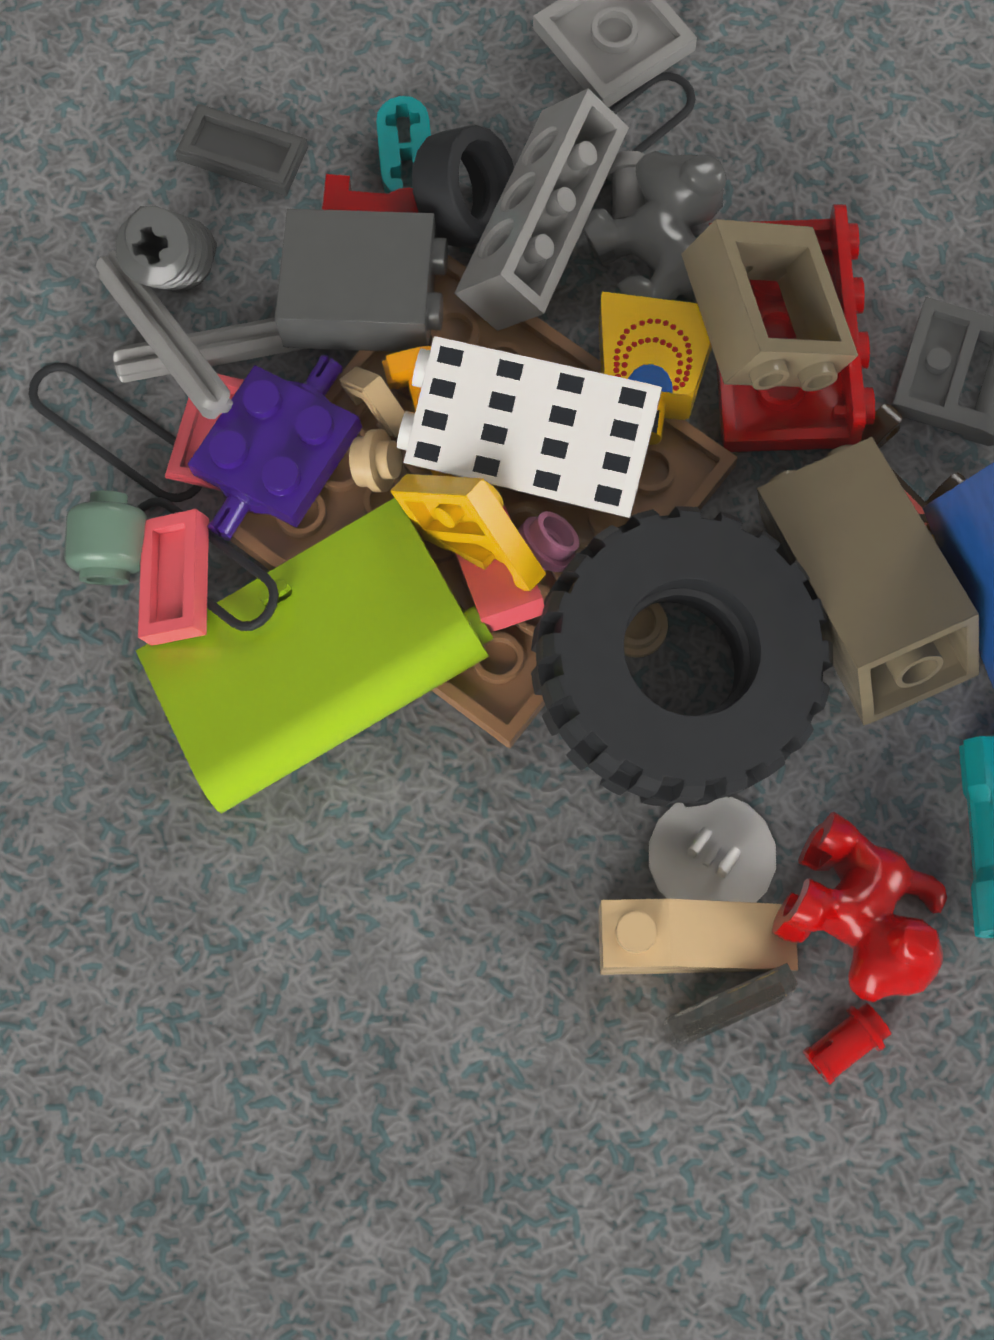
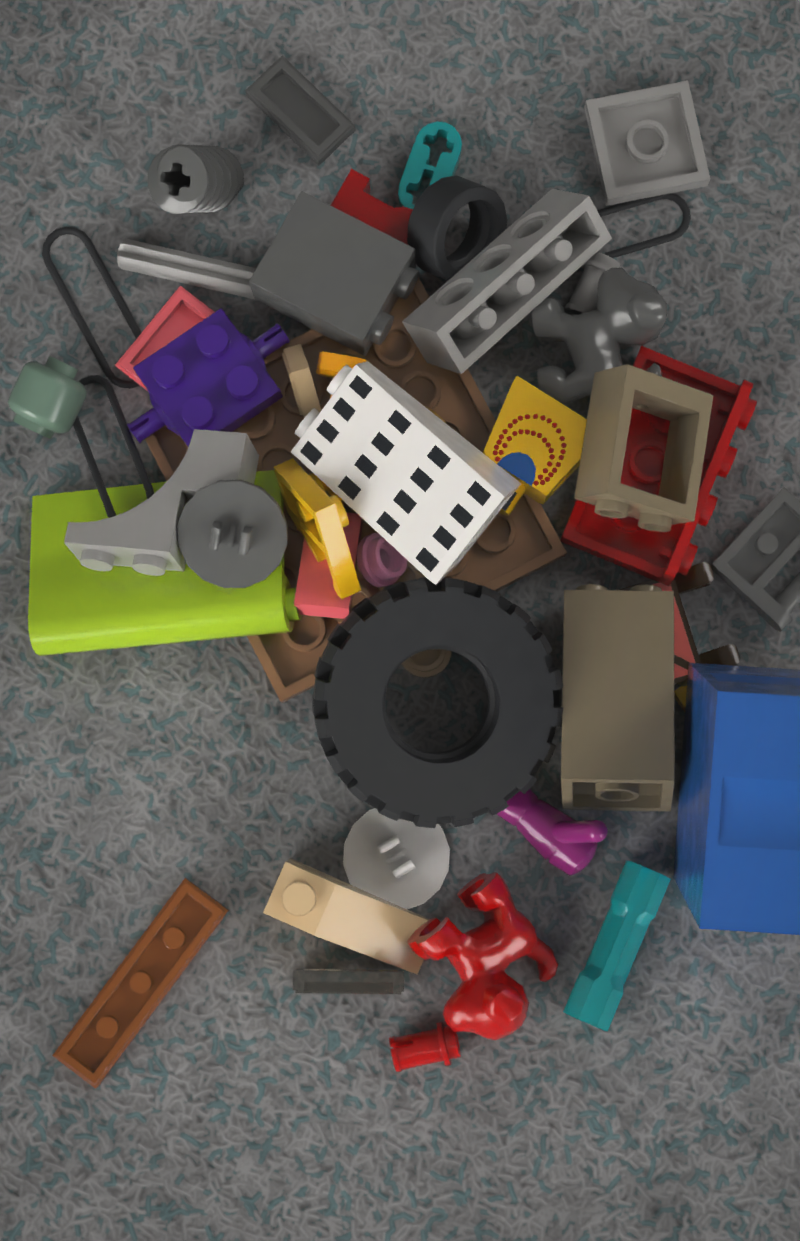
camera: 25 degrees right, 10 degrees up
(166, 339) = (164, 263): light grey axle -> none
(174, 578) = (83, 454): coral tile -> none
(294, 612) = (148, 533): none -> light grey arch
(375, 460) = (276, 431): tan plate -> none
(381, 571) = (232, 533): none -> dark grey piece
(498, 1122) = (140, 983): none -> dark orange tile
(873, 751) = (554, 834): none -> magenta piece

